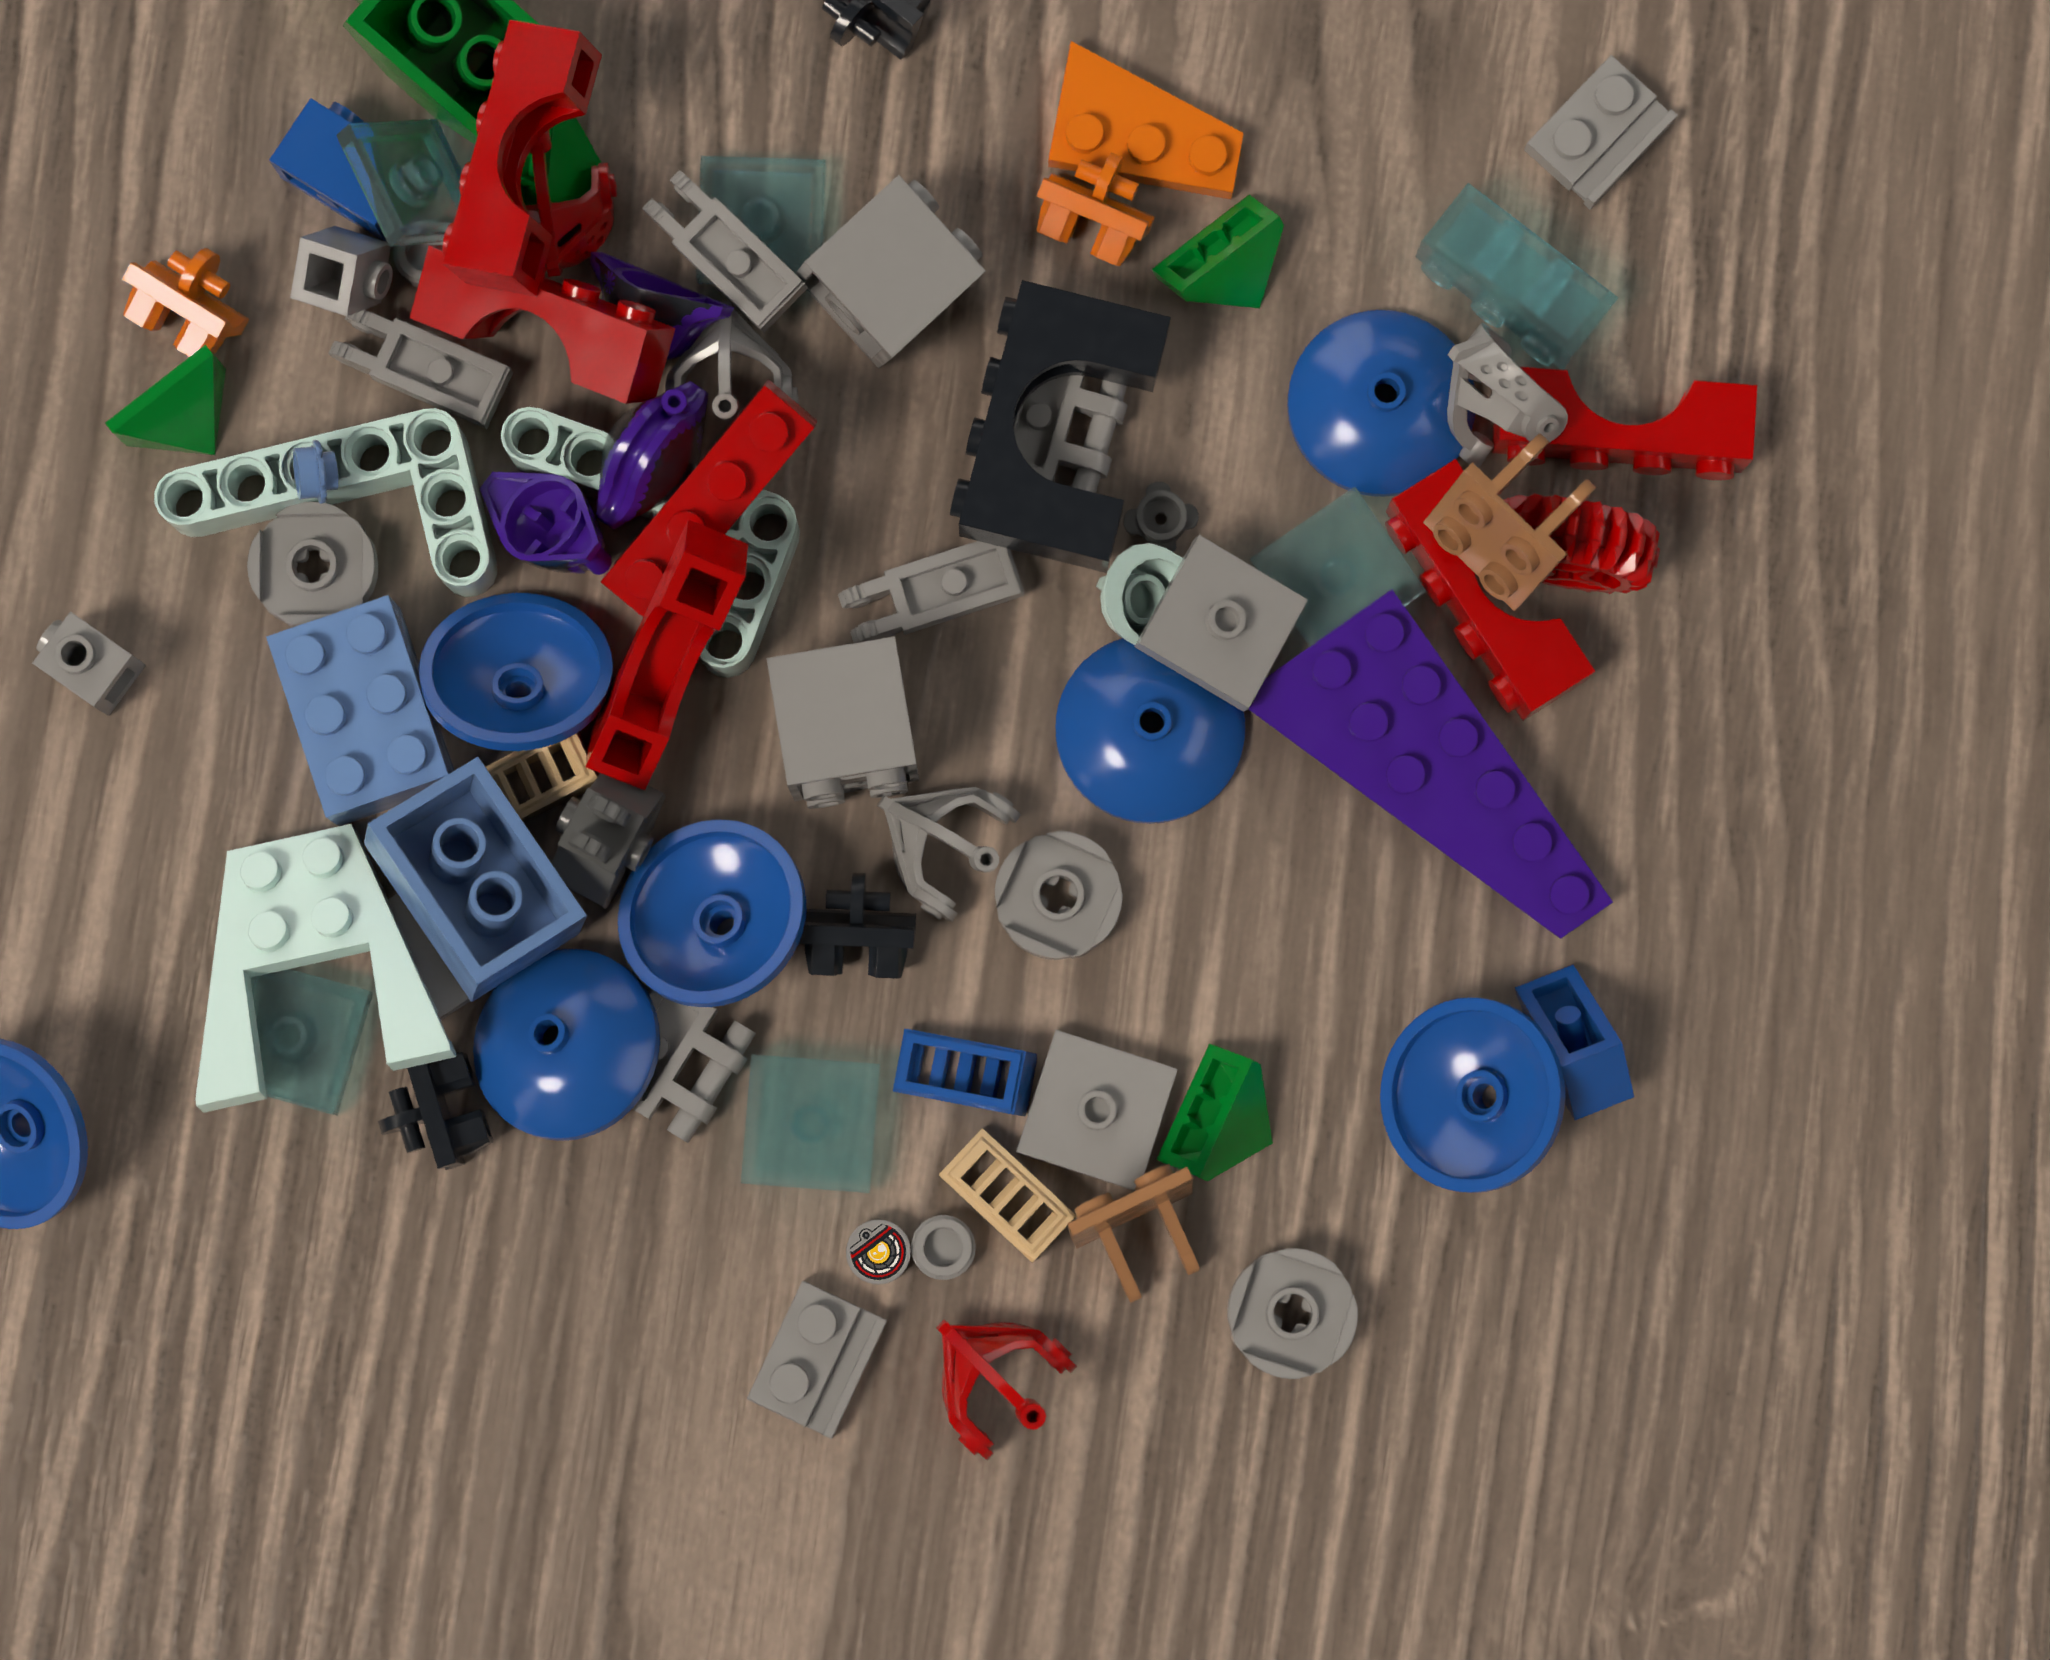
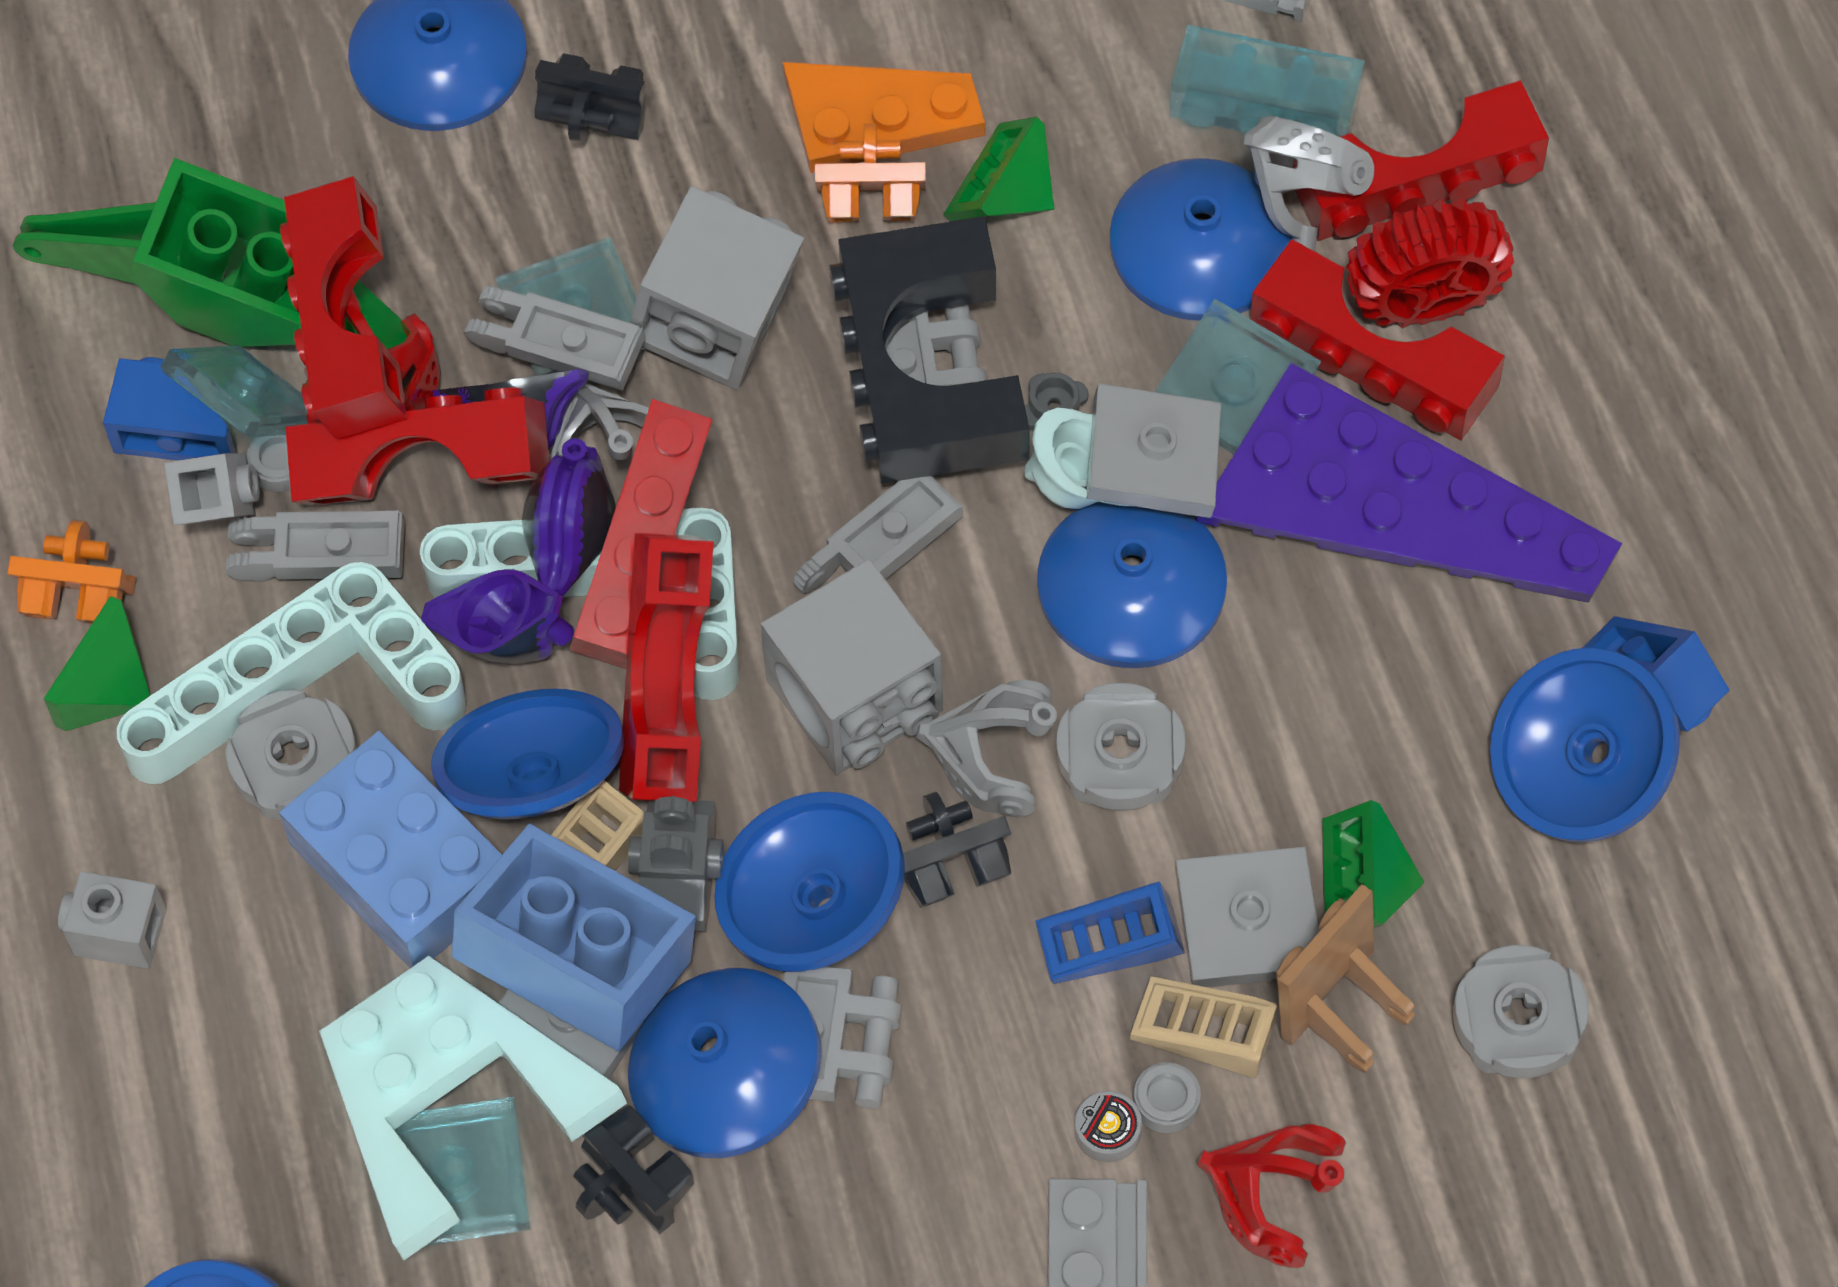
camera: 20 degrees left, 20 degrees down
(314, 472) = (263, 652): medium blue plate -> none
(810, 1123) = (989, 1038): clear light blue plate -> none
(1493, 537) = (1362, 264): medium nougat plate -> none

